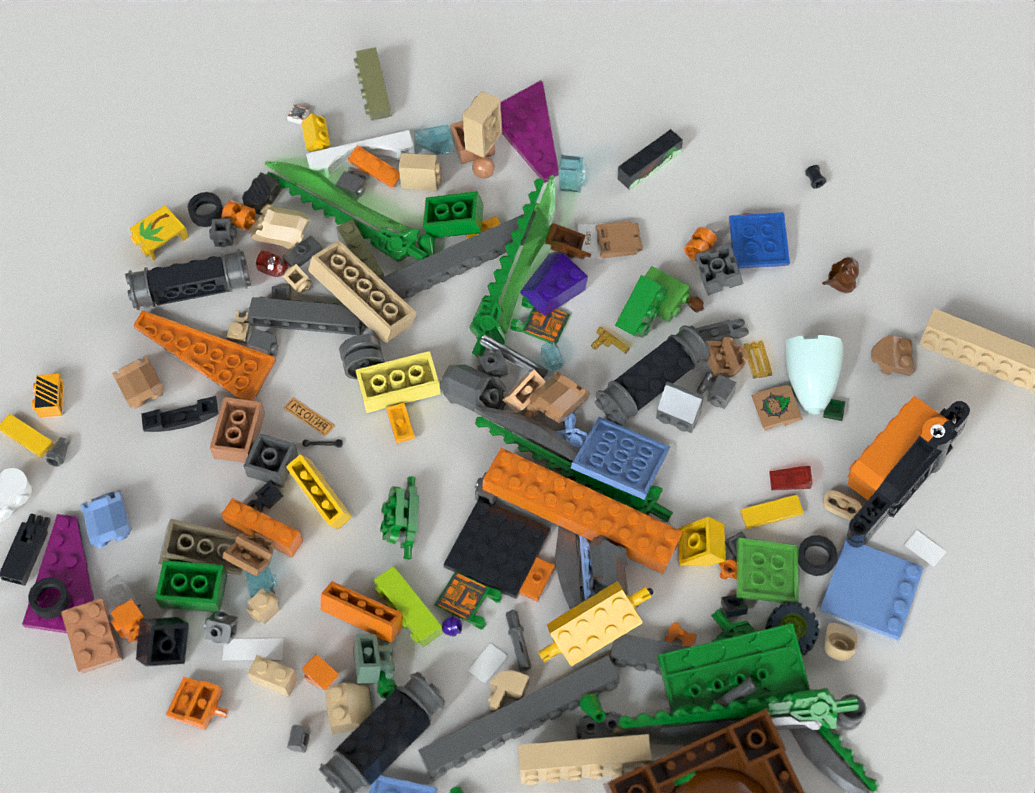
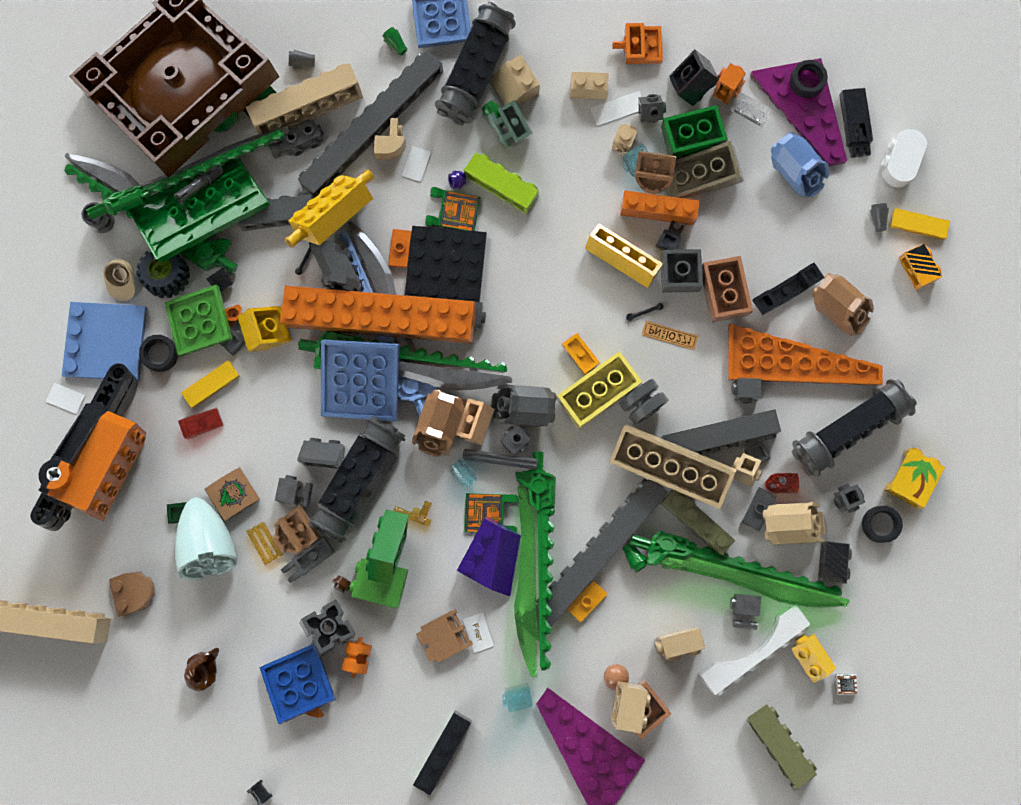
camera: 160 degrees right, 20 degrees up
(91, 635) = (758, 59): nougat brick -> none
(239, 215) = (846, 526): orange wheel -> none
(239, 330) = (779, 400): tan plate -> none
(298, 738) = (545, 46): dark grey brick -> none
(319, 672) = (548, 95): orange slope -> none
(361, 611) = (538, 160): orange brick -> none
(374, 166) = (731, 636): orange plate -> none
(401, 516) = (539, 258): green piece -> none
(435, 139) = (680, 698): clear light blue slope -> none
(453, 214) = (622, 599): green brick -> none
(518, 641) = (397, 189): dark grey axle -> none
(566, 241) = (493, 603): reddish brown bracket -> none
(592, 707) = (311, 144): green cone -> none
(675, 631) = (265, 243): orange piece -> none
(842, 505) = (147, 410): tan plate -> none

